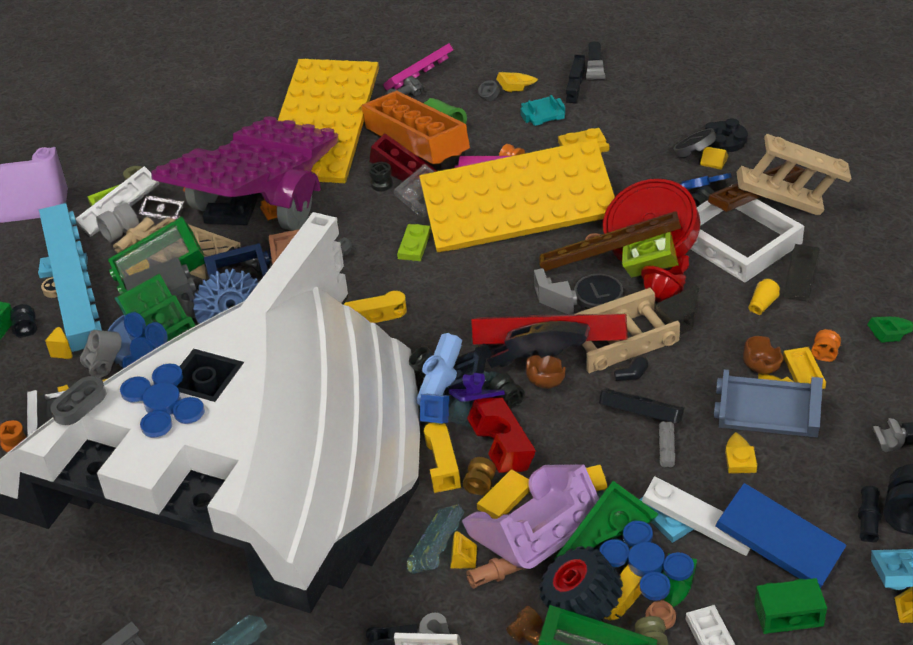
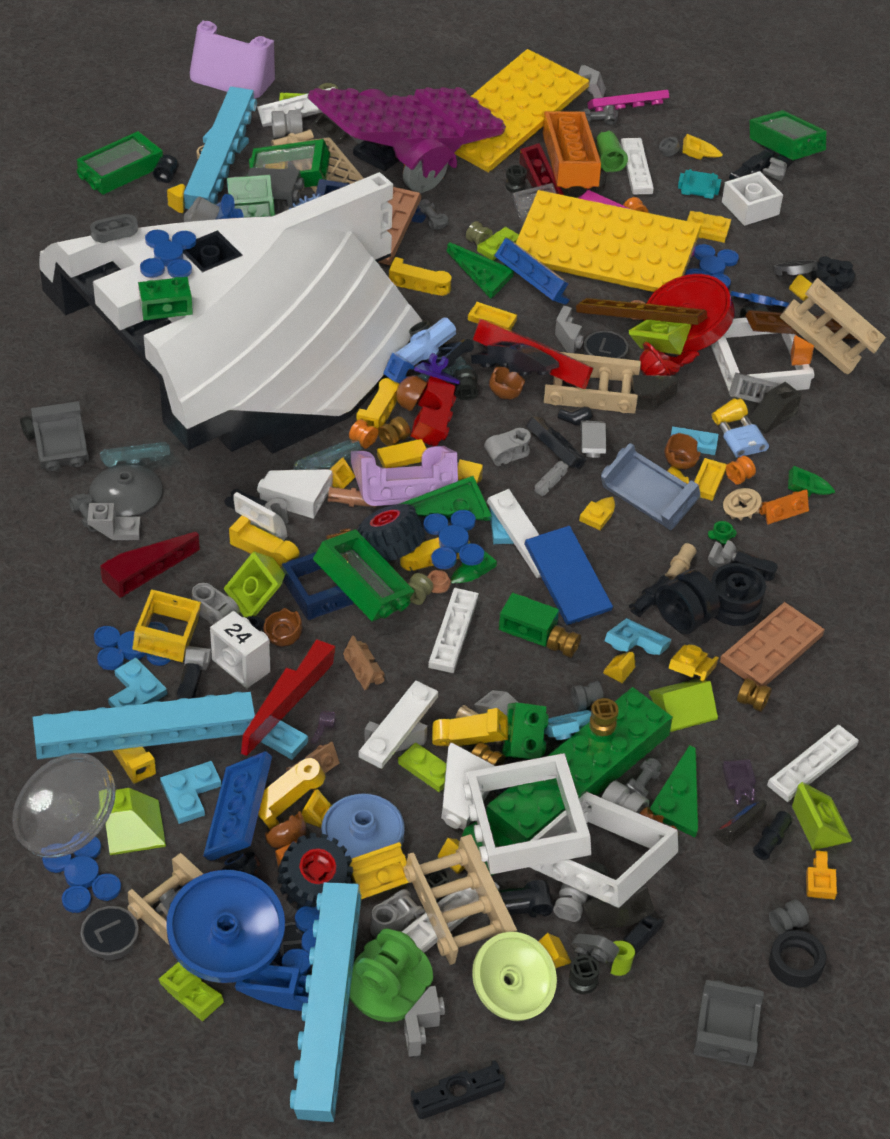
camera: 25 degrees right, 5 degrees up
(204, 451) = (165, 298): none -> green brick
(384, 67) = (596, 83): none -> light grey slope
(390, 241) = (478, 233): none -> olive wheel
(425, 274) = (484, 272): none -> green wing
(435, 590) = (301, 489): none -> white slope
(450, 494) = (365, 434): none -> orange wheel
(461, 314) = (493, 314): none -> yellow tile
(464, 426) = (410, 391): none -> dark orange hair
(475, 251) = (532, 270): none -> blue fence
(479, 120) = (637, 166): none -> white plate
(584, 37) = (788, 135): none -> green window
(602, 432) = (506, 447): none -> light grey piece
(603, 101) = (752, 198): none -> white brick
(622, 172) = (714, 265): none -> blue piece
(672, 382) = (593, 438): none -> light grey slope
(756, 266) = (738, 382): none -> light grey slope
(770, 330) = (706, 441): none -> medium azure plate
(781, 210) = (801, 351): none -> orange slope
(798, 316) = (745, 439): none -> light blue piece
(842, 609) = (564, 641): none -> pearl gold wheel
(856, 368) = (747, 497): none -> tan gear
(863, 465) = (681, 561): none -> tan pin
(866, 414) = (722, 532): none -> green plate
(893, 360) = (785, 506): none -> orange hinge

